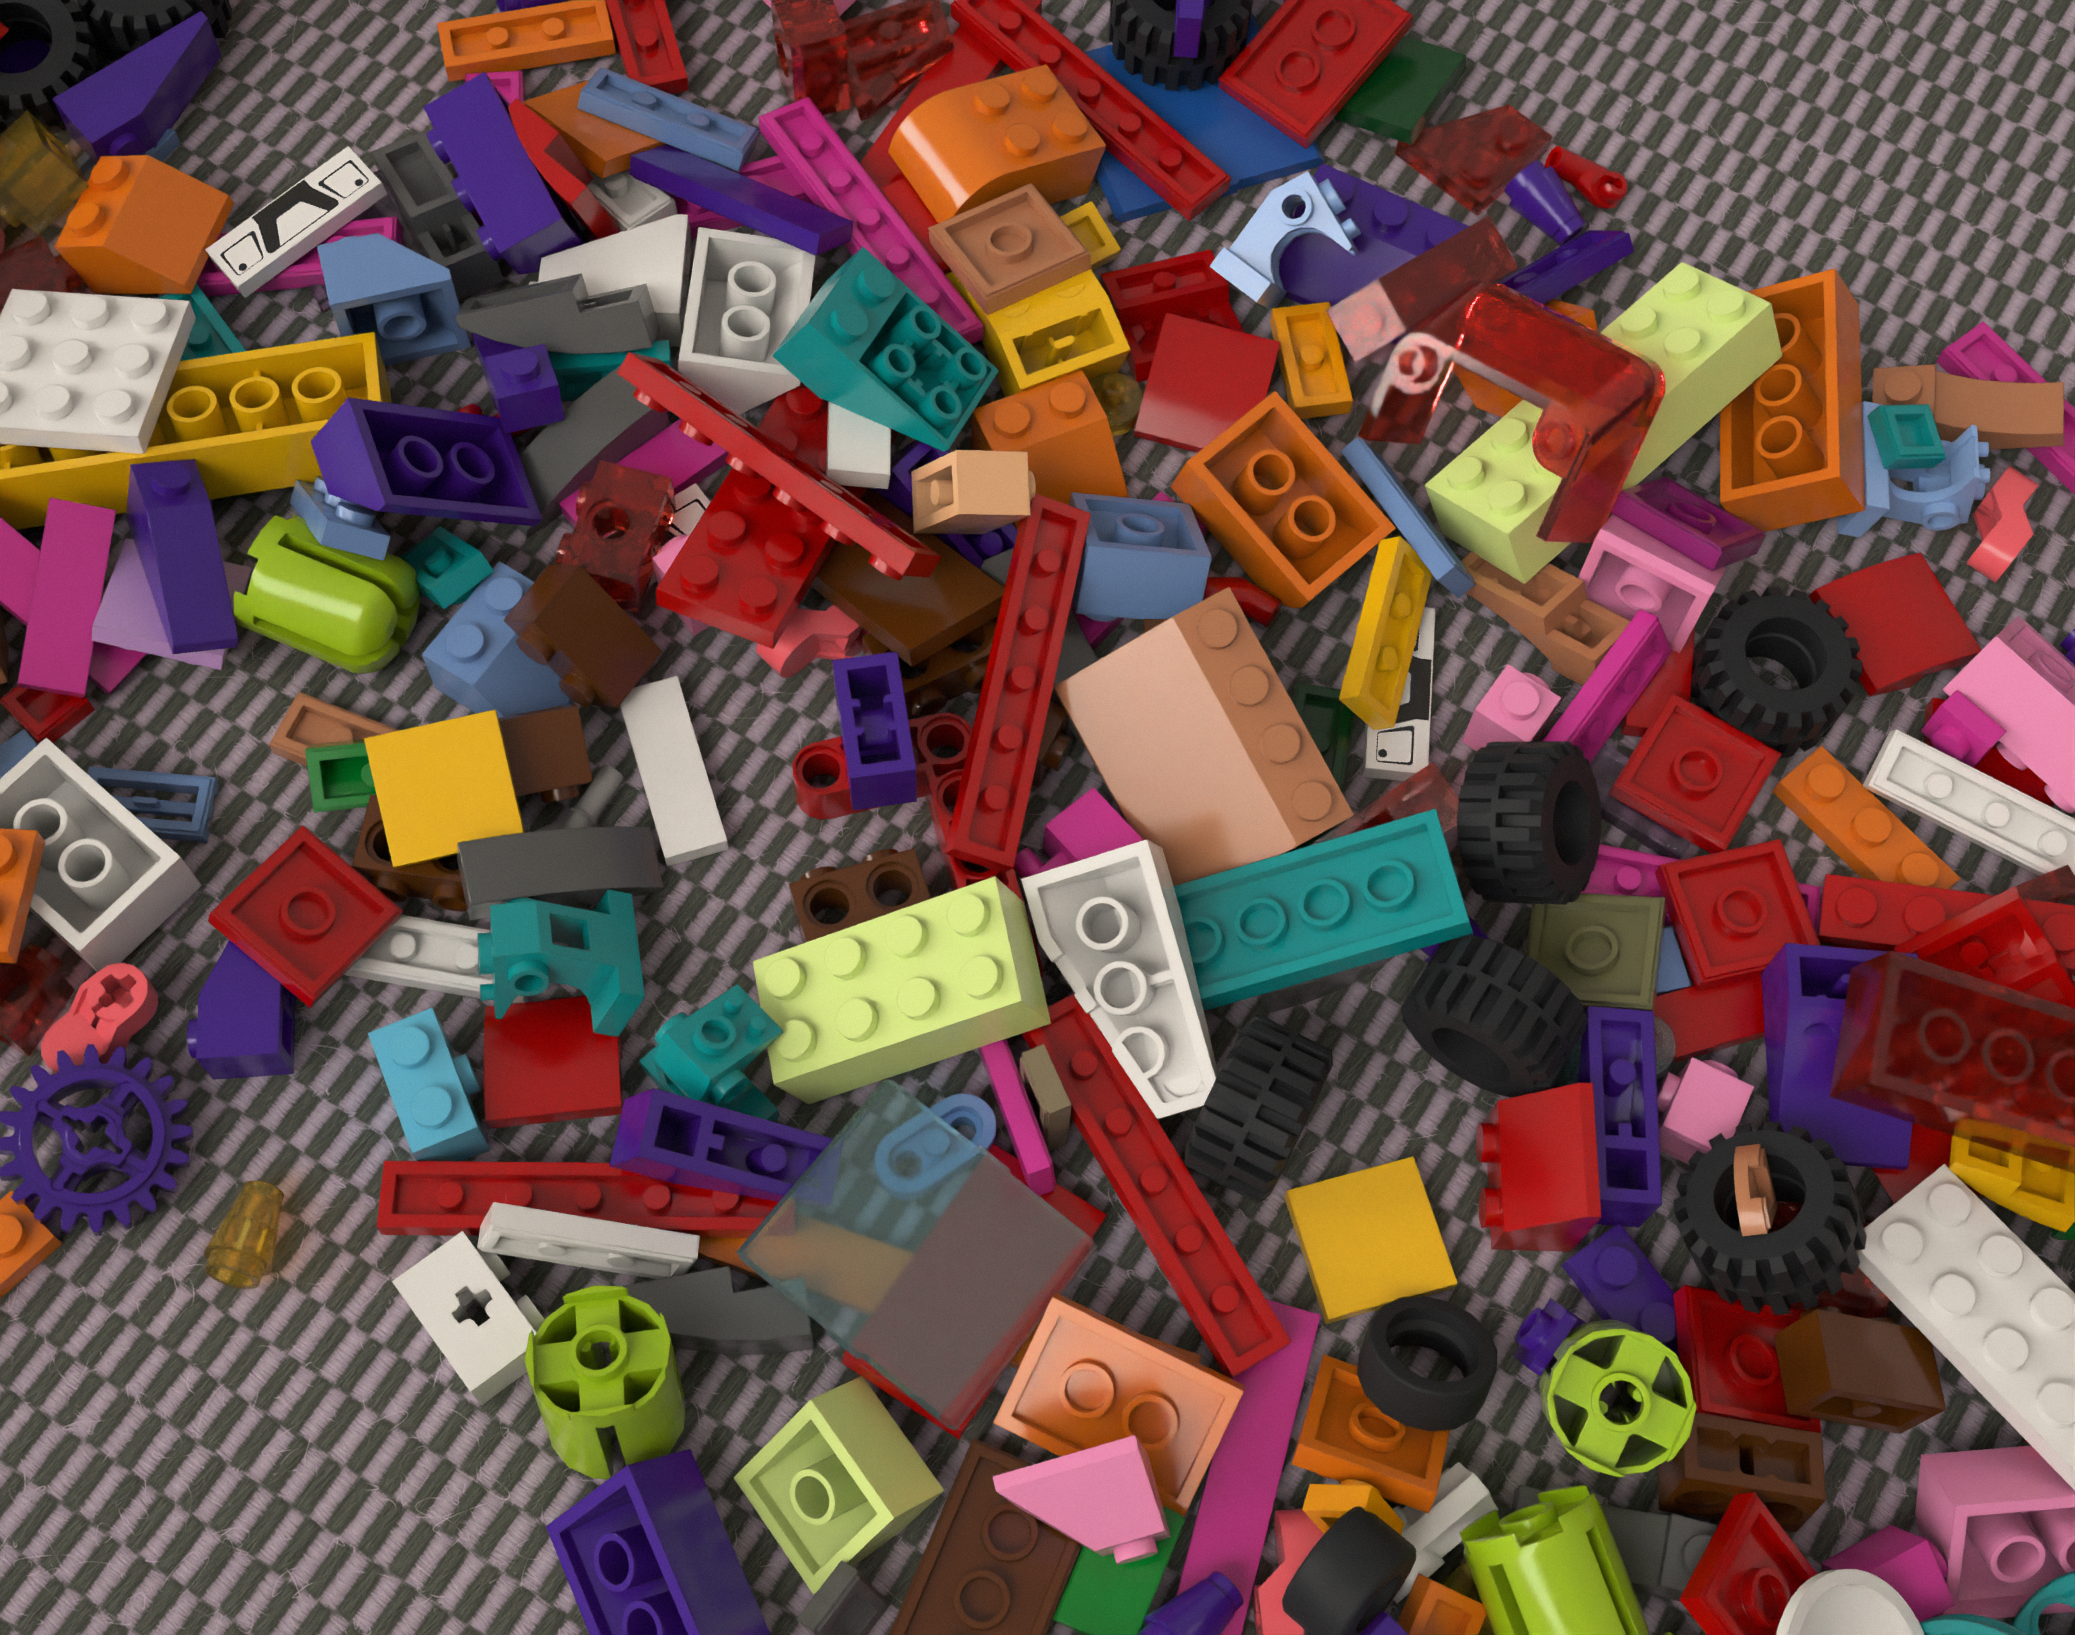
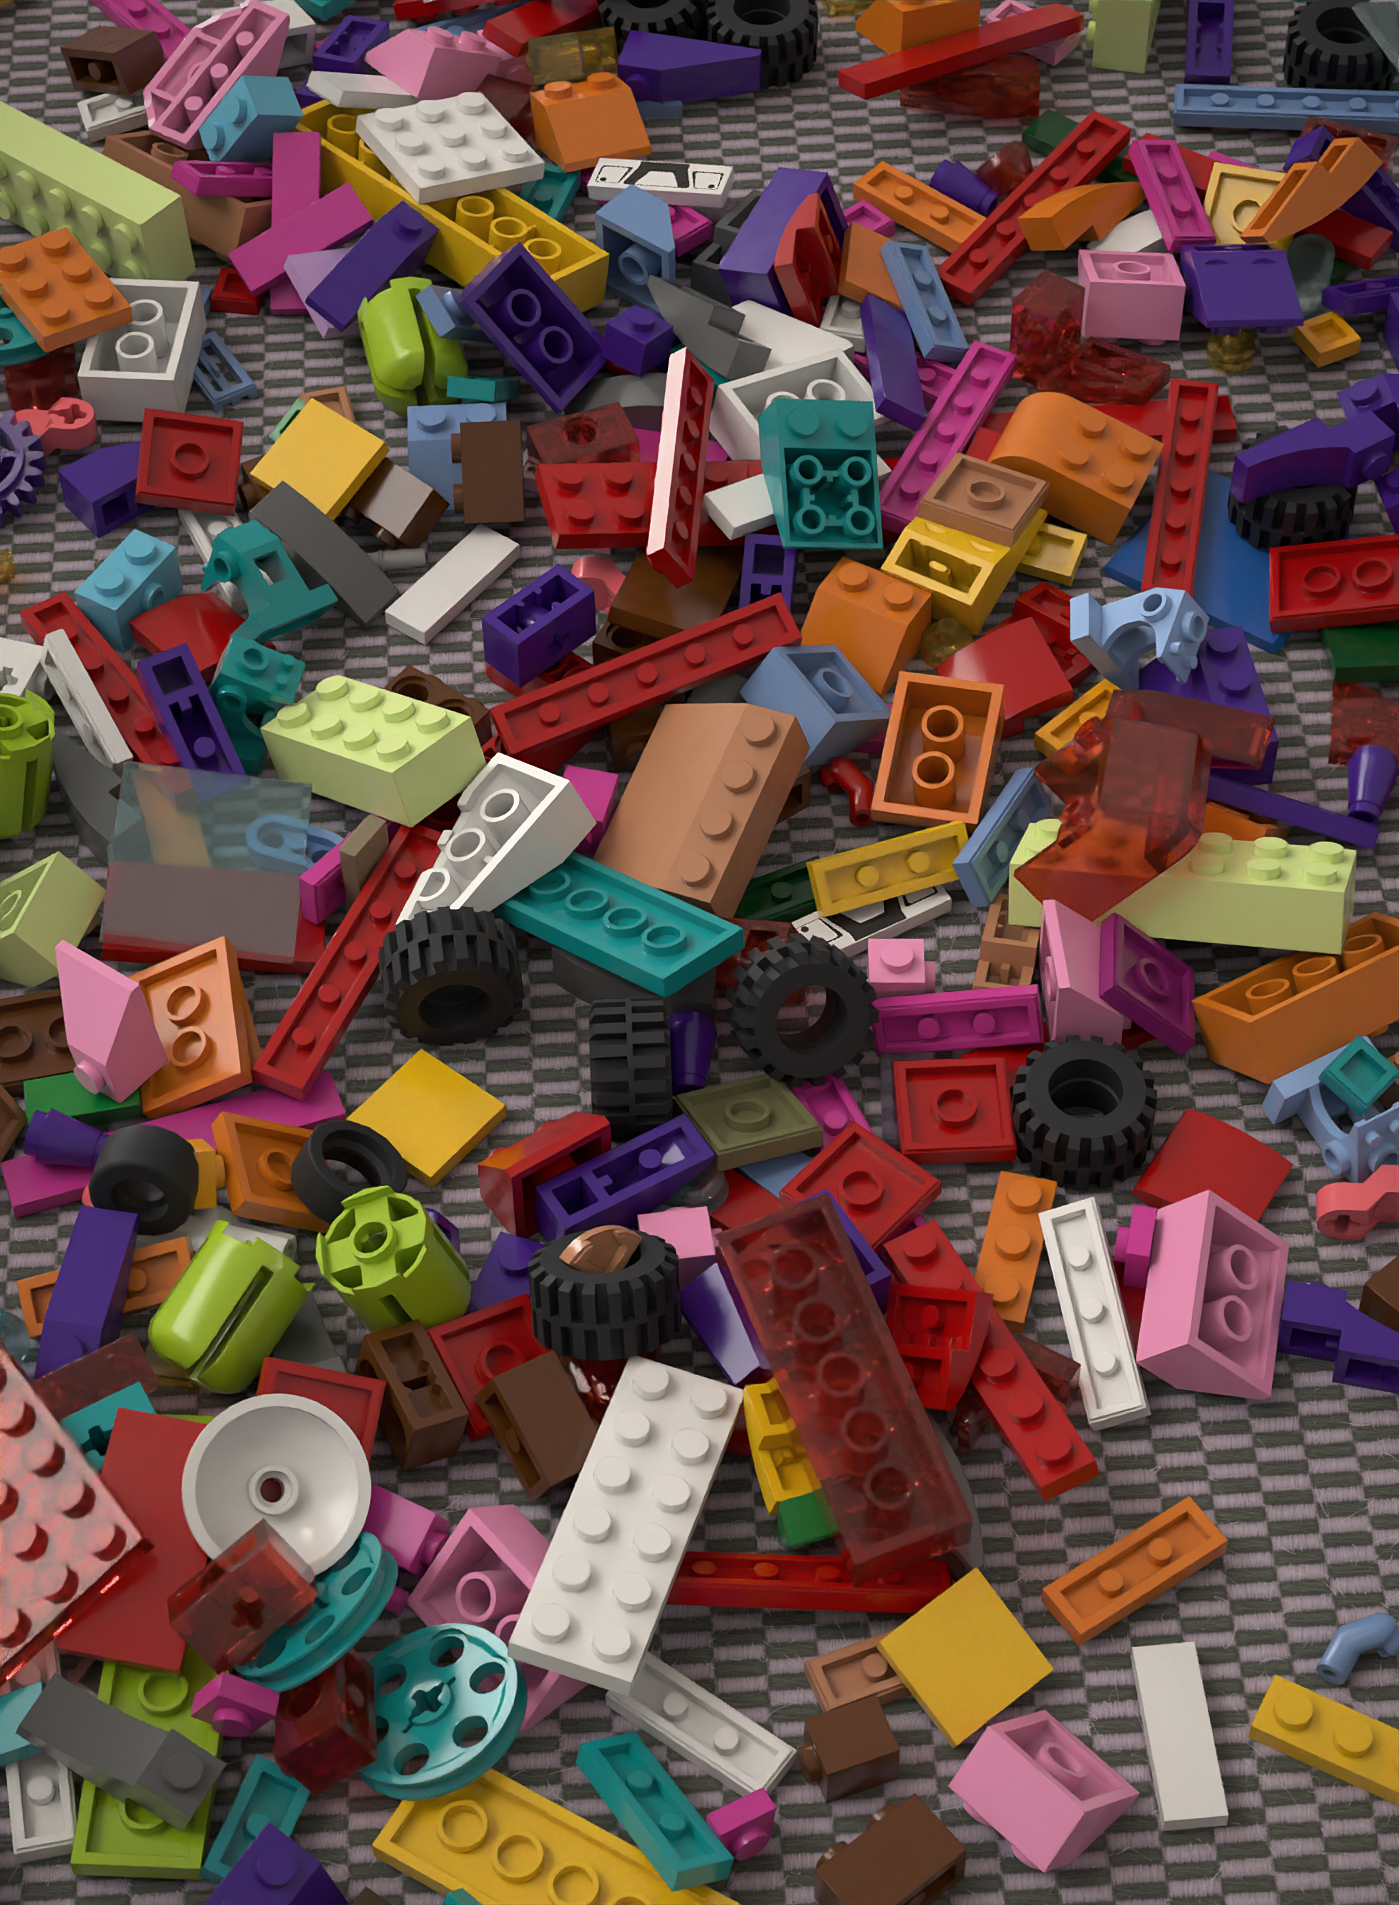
camera: 60 degrees right, 15 degrees down
(972, 492) = (756, 566): light nougat brick -> none

